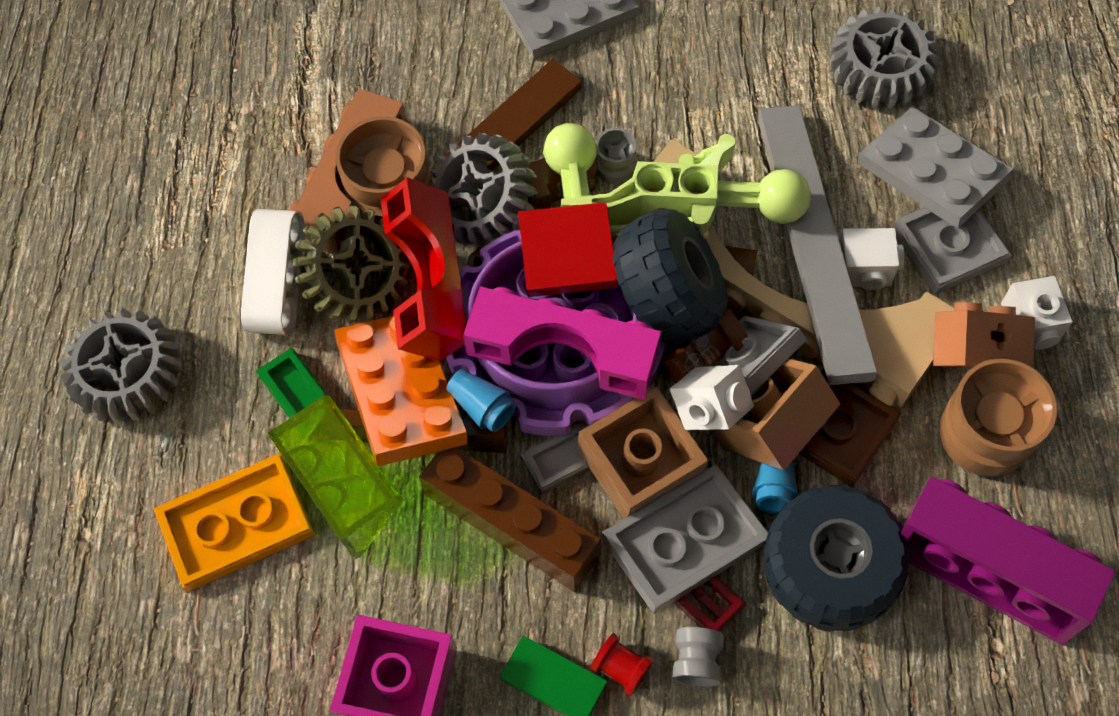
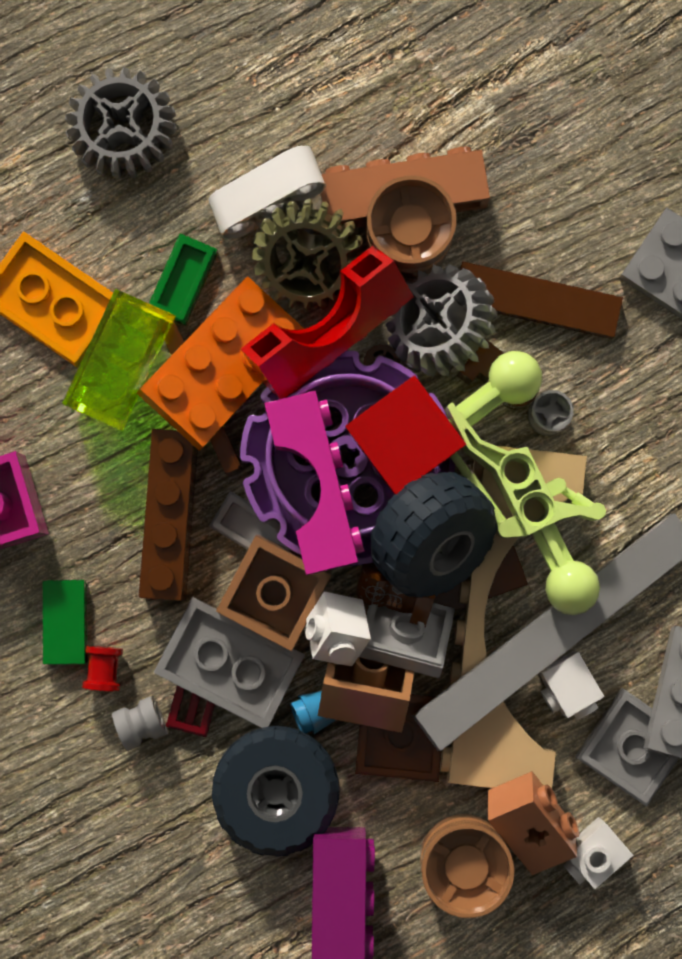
camera: 60 degrees right, 20 degrees up
(483, 401) = (239, 441): dark azure cone -> none

